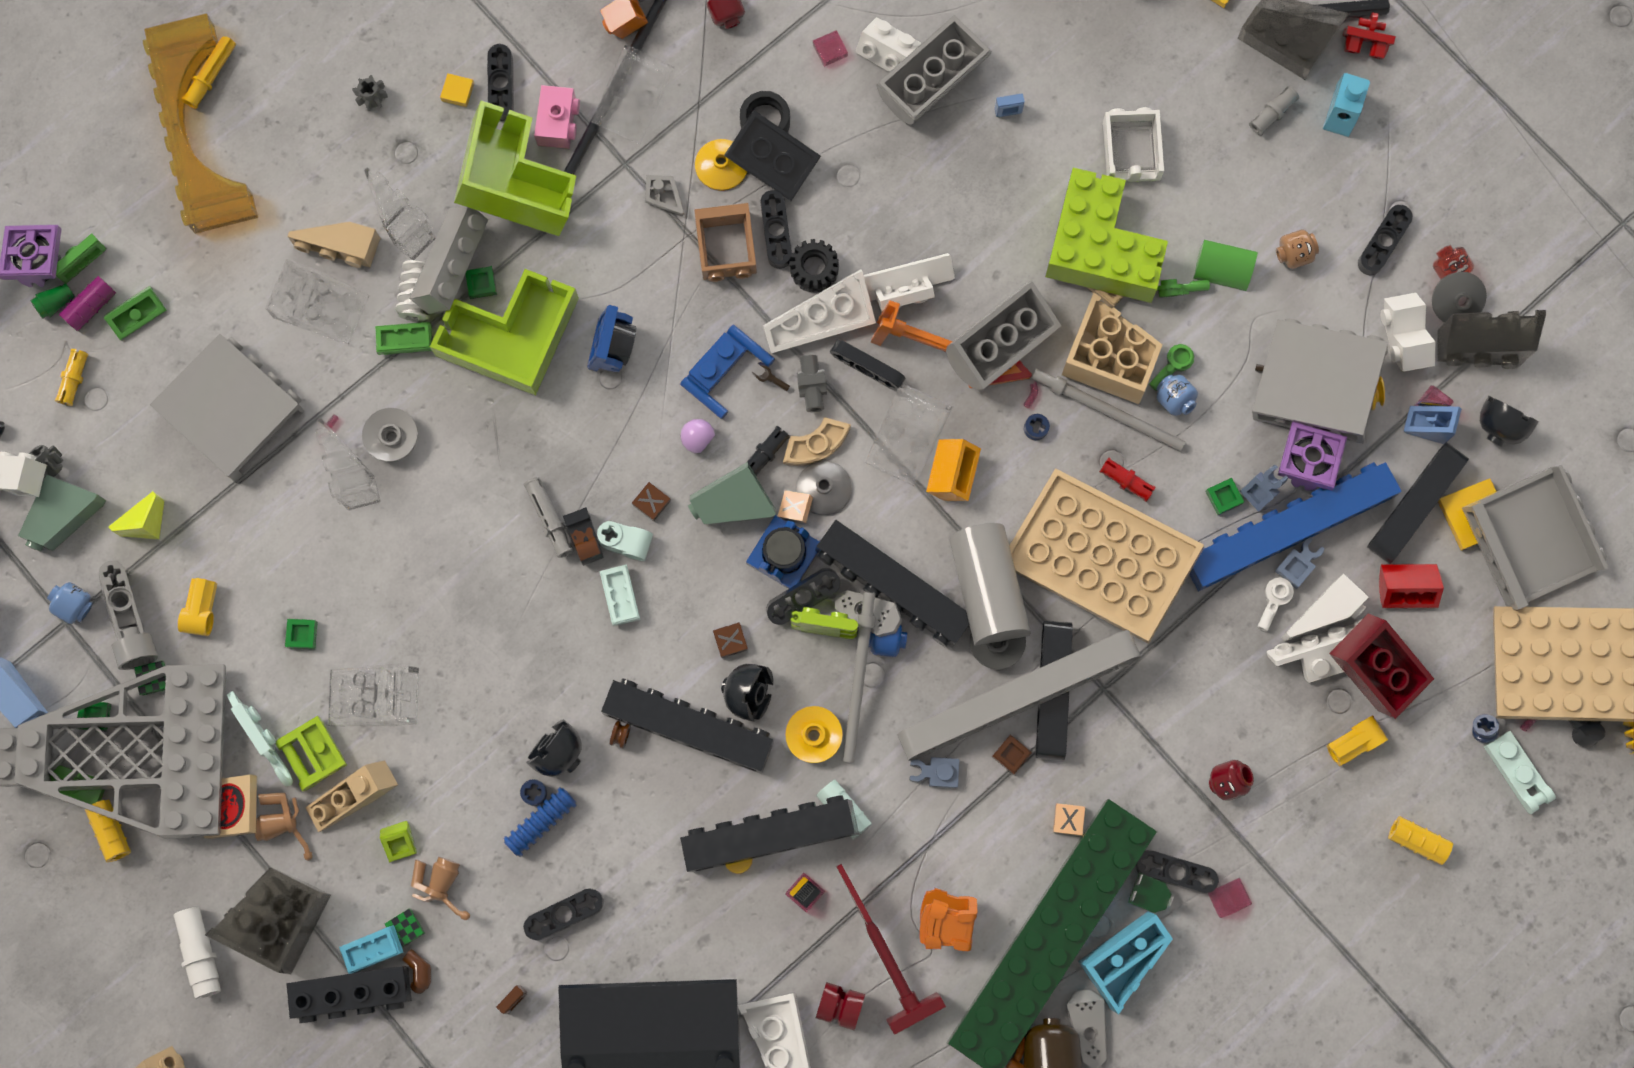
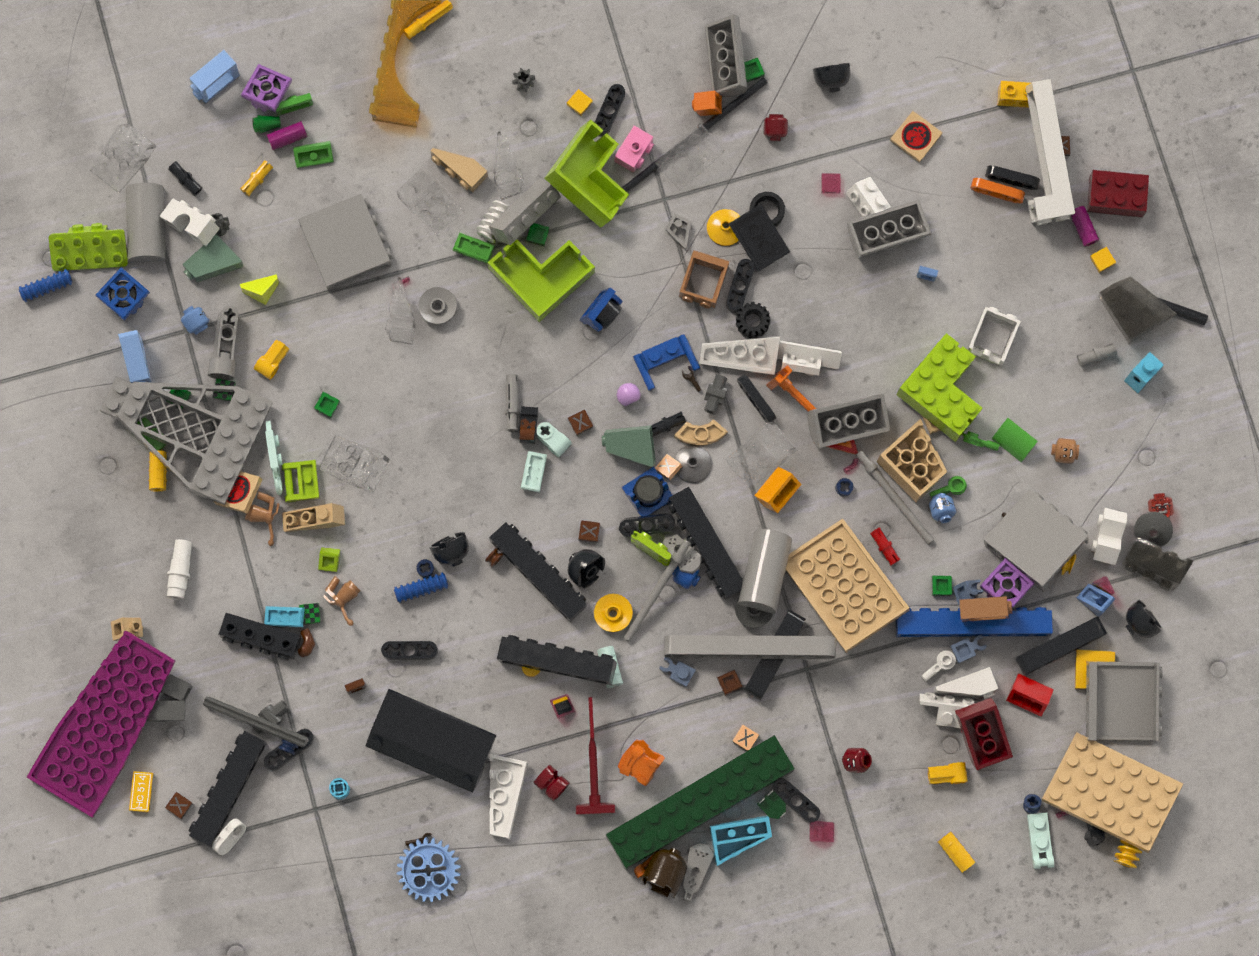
camera: 20 degrees right, 0 degrees up
(273, 920) = (234, 571): clear smoke wedge -> none
(1306, 499) = (985, 609): none -> medium nougat window
(1380, 41) = (1188, 341): red hips -> none
(1393, 233) = (1112, 473): black beam -> none

